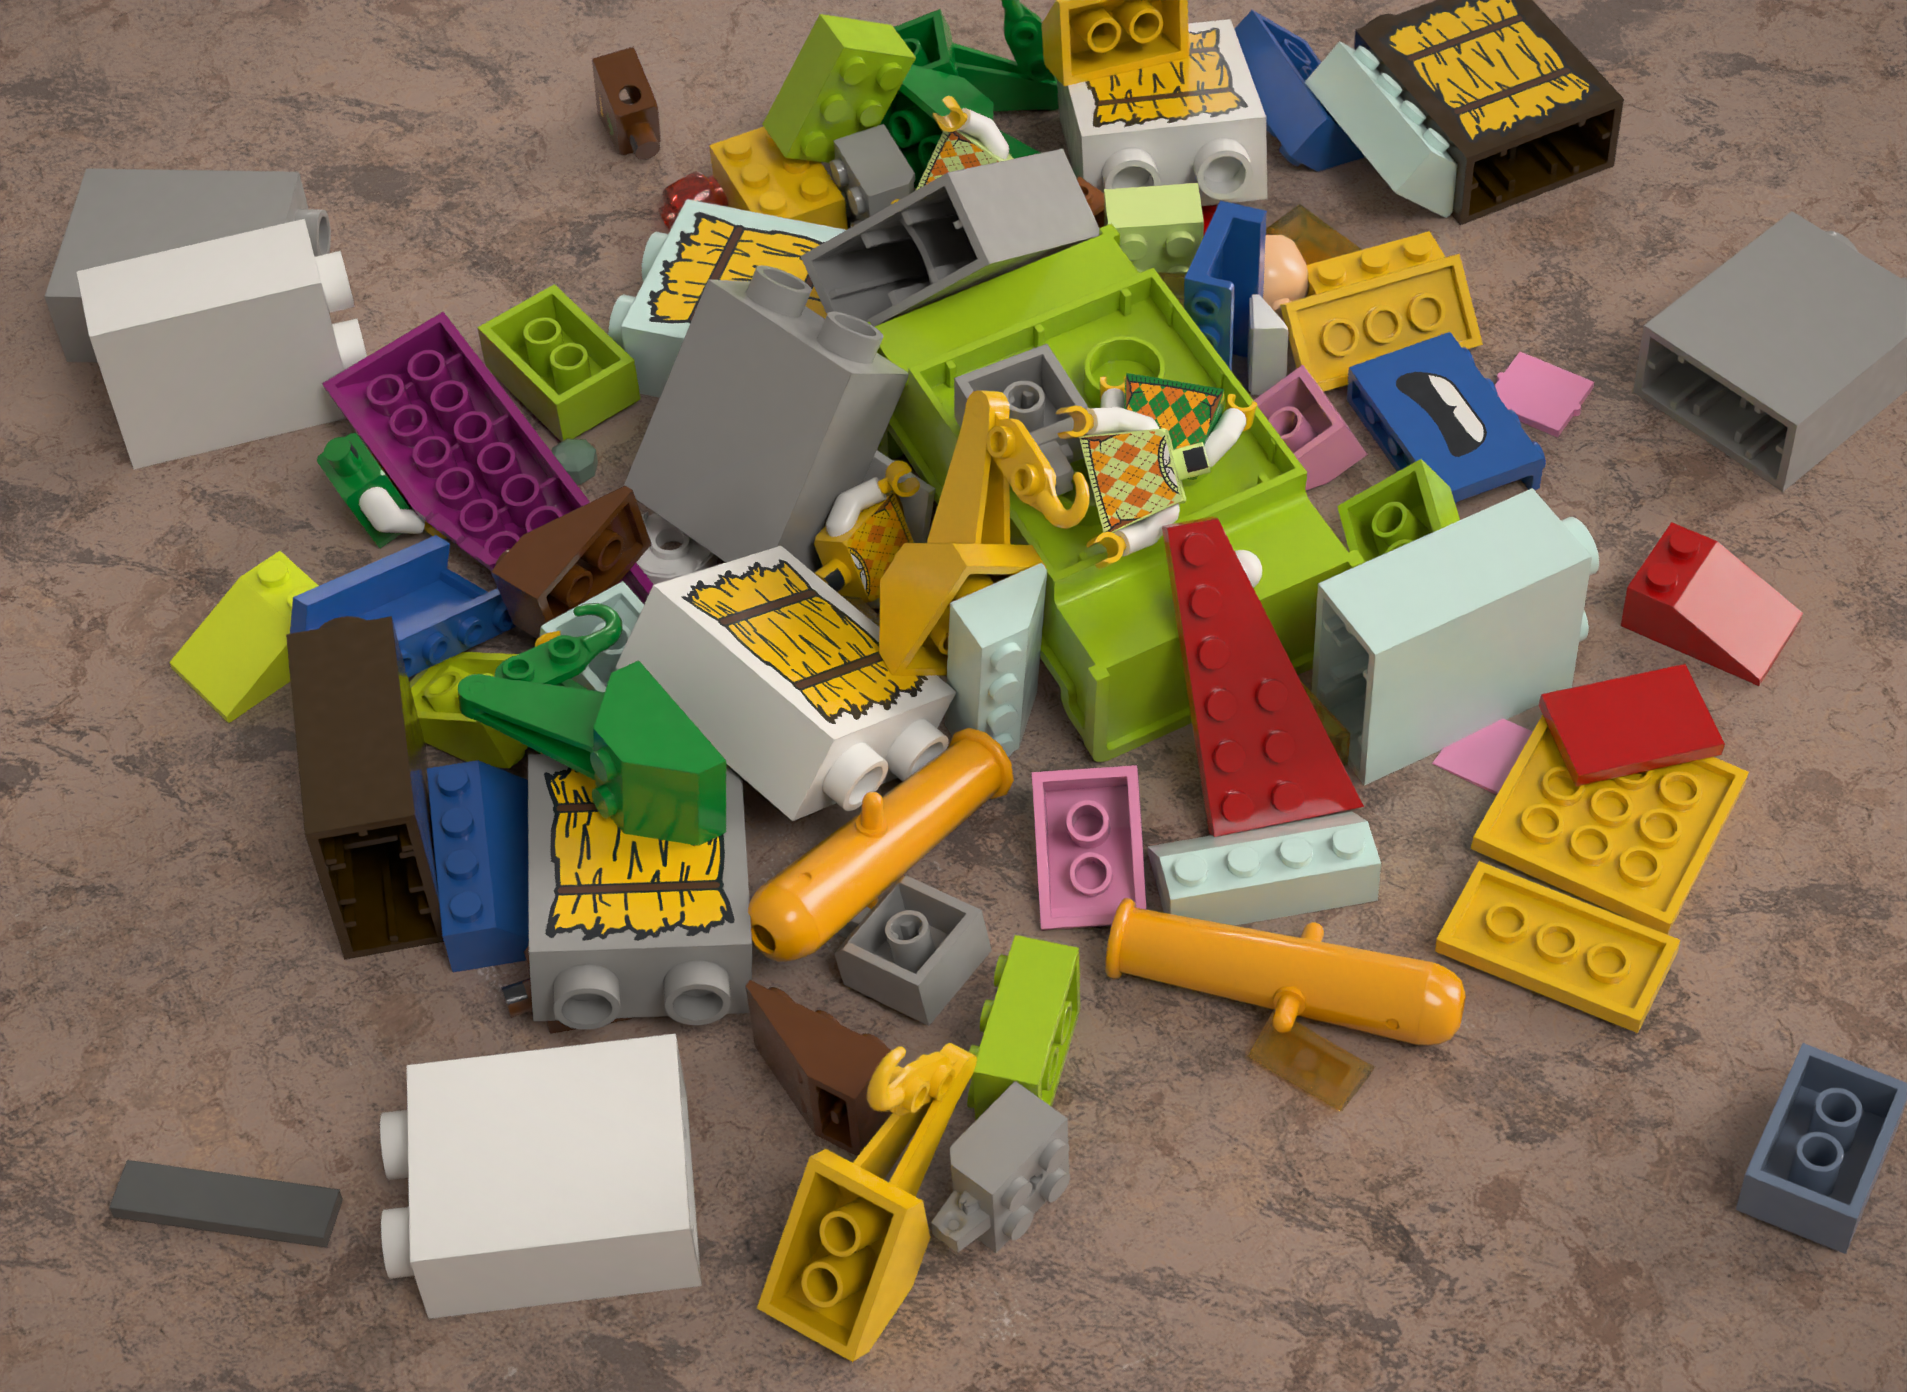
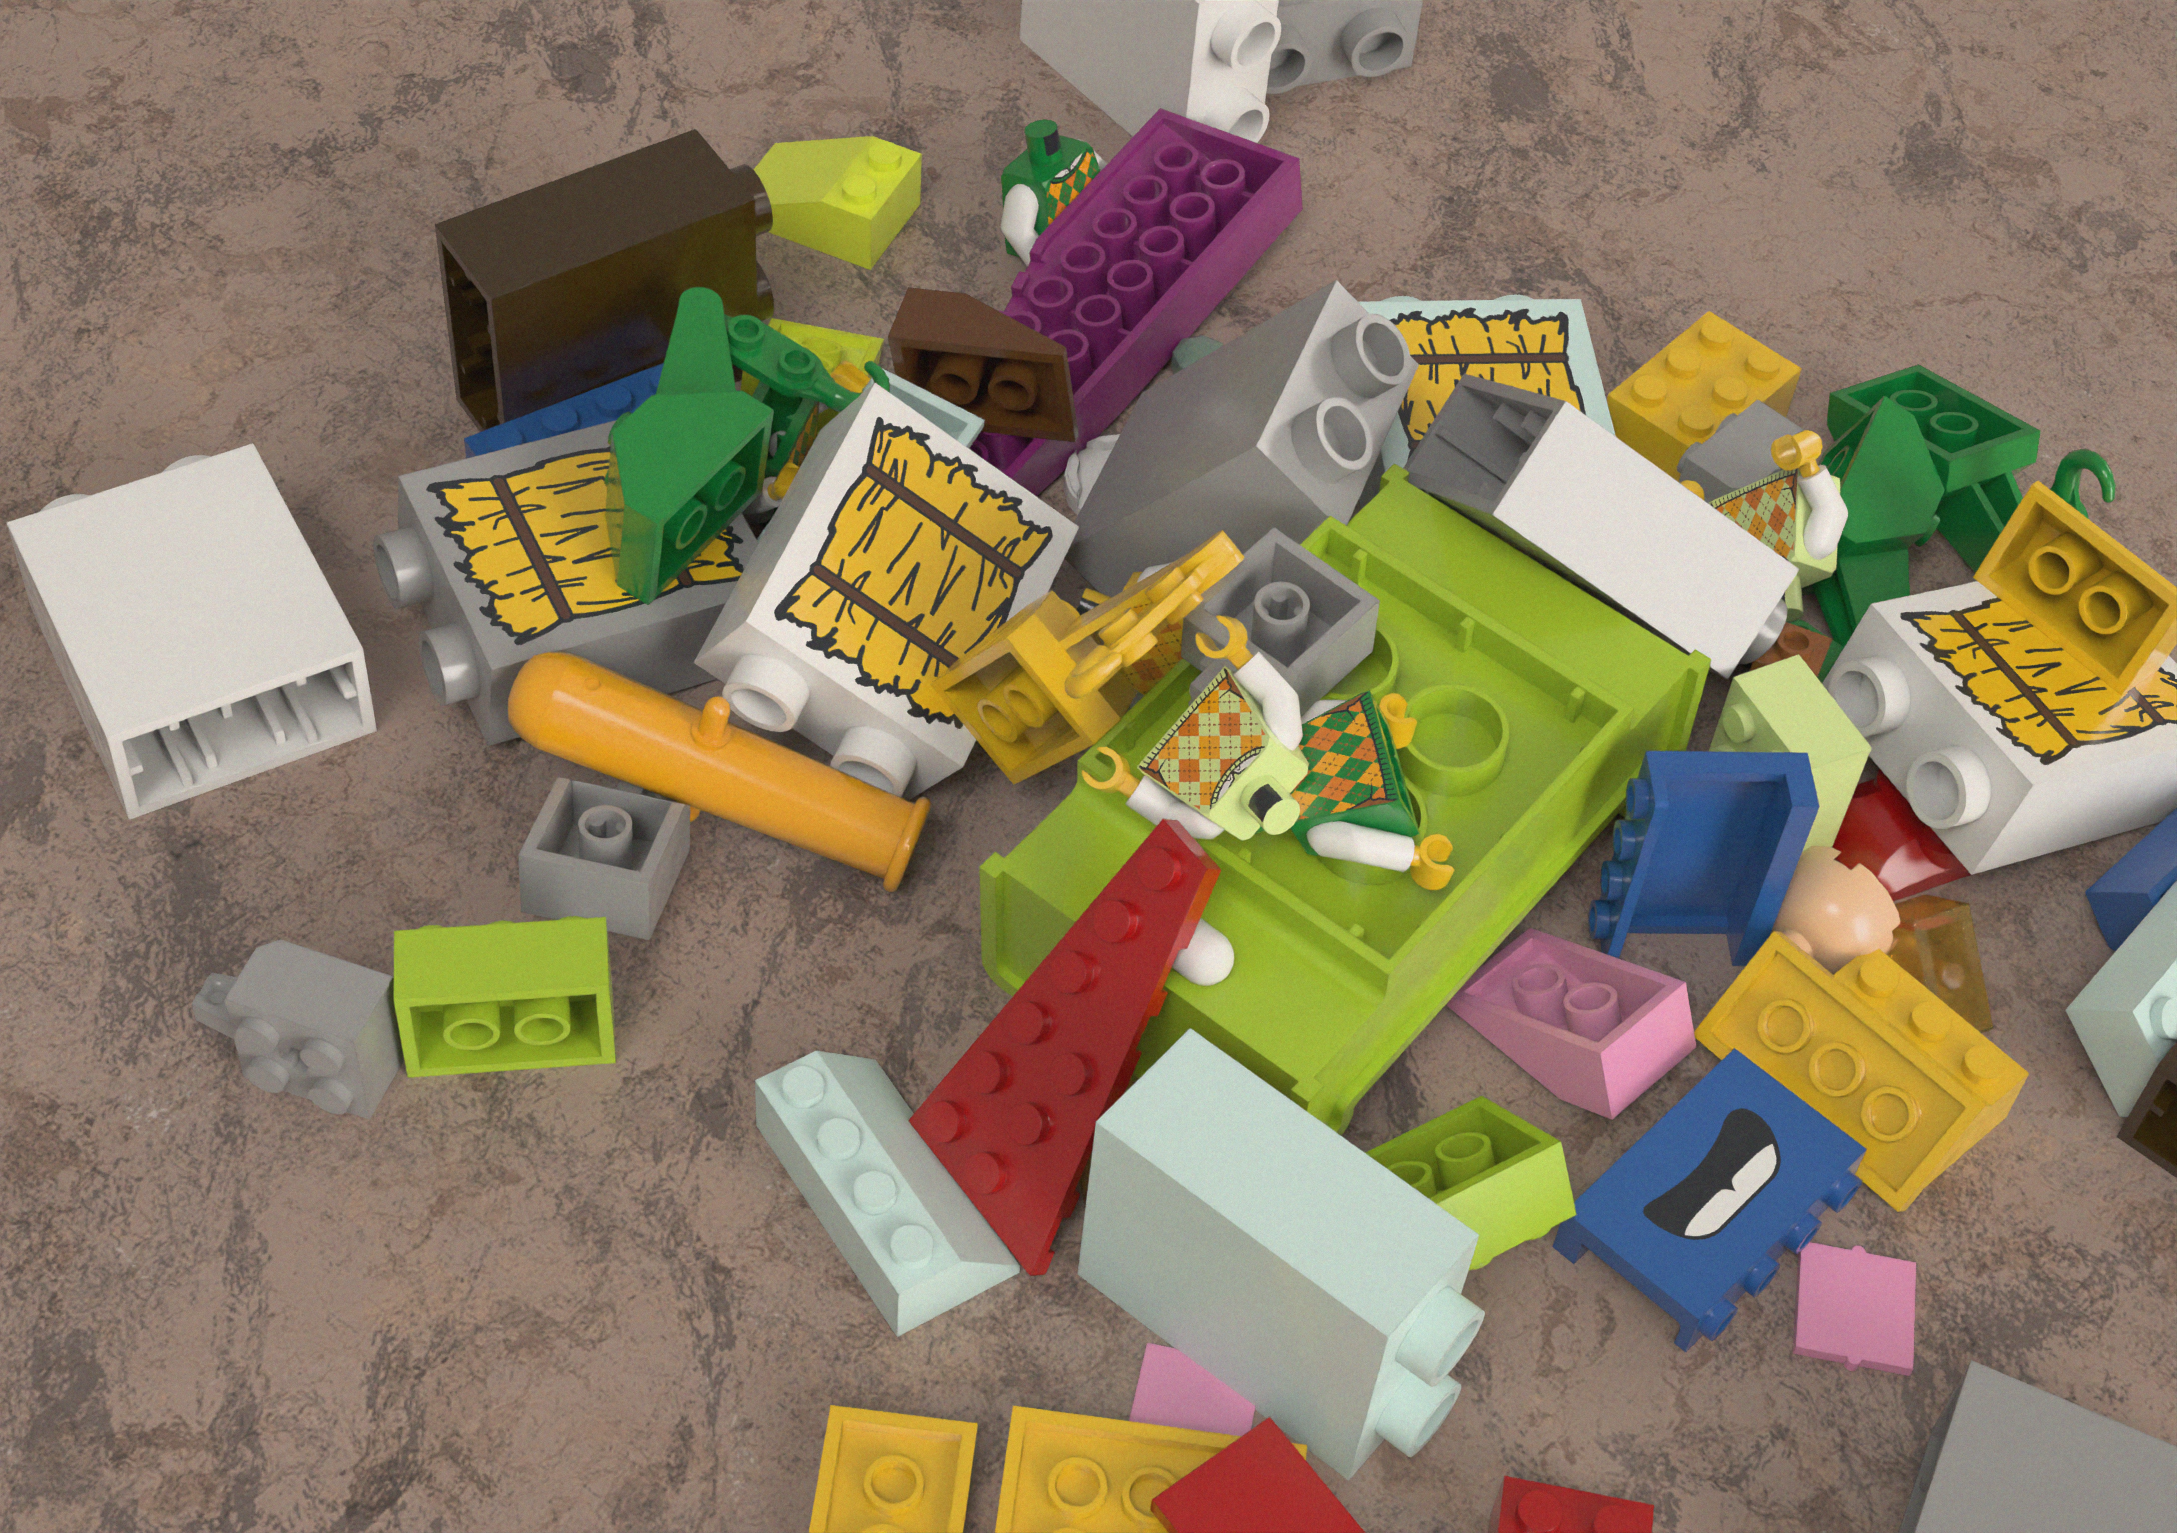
camera: 60 degrees right, 0 degrees up
(226, 1203) = (118, 400): dark grey tile -> none
(429, 604) = (857, 252): blue panel -> none
(559, 363) = (1310, 255): lime brick -> none
(634, 121) = (1738, 229): reddish brown torso -> none
(692, 187) = (1628, 335): clear red head -> none
(819, 1066) = (399, 816): reddish brown slope -> none
(837, 86) = (1824, 359): lime brick -> none
(852, 1234) = (190, 894): yellow slope -> none
(996, 656) = (994, 769): light aqua slope -> none
(1087, 845) = (840, 985): bright pink slope -> none
(1265, 347) = (1712, 939): white slope -> none
(1294, 975) = (708, 1255): light orange piece -> none
(1311, 1063) = (616, 1323): clear yellow slope -> none

